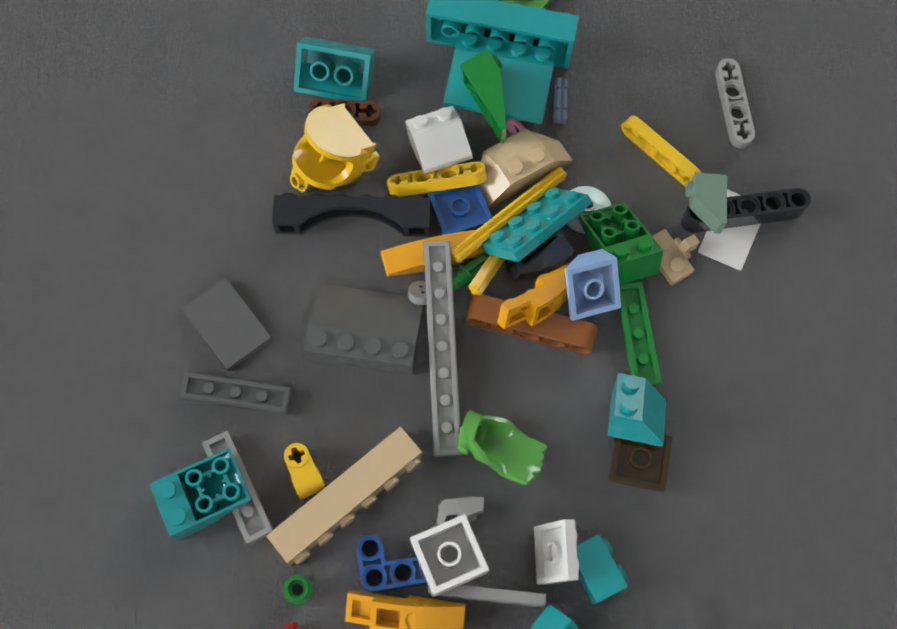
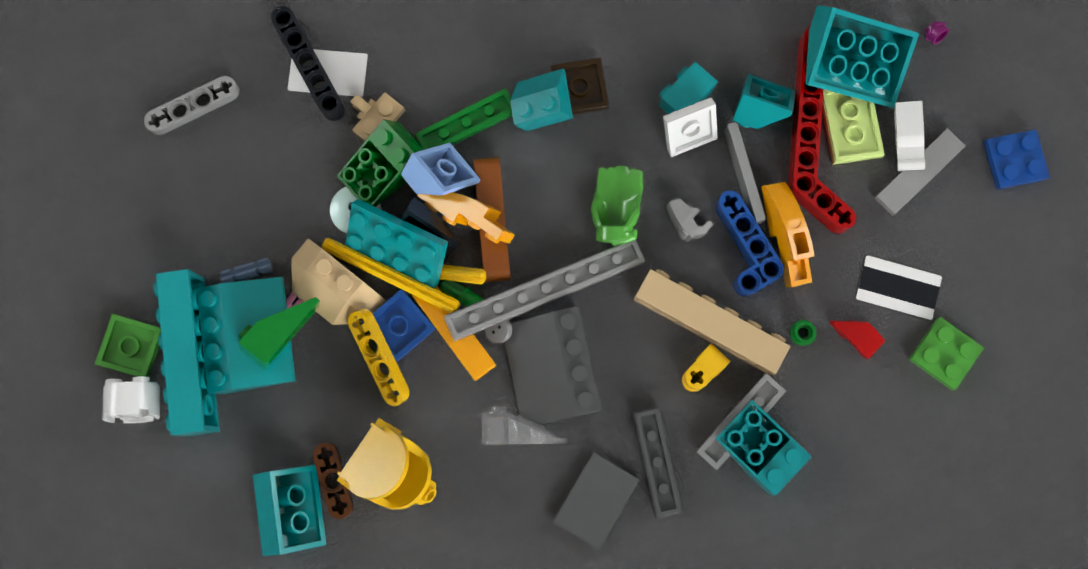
camera: 110 degrees left, 10 degrees up
(299, 213) = (426, 374): black arch -> none
(319, 273) = (511, 428): none -> clear slope
(438, 139) = (336, 370): white slope -> none
(449, 555) = (735, 207): white brick -> none
(659, 149) = (271, 157): yellow beam -> none
(709, 199) = (316, 92): sand green slope -> none

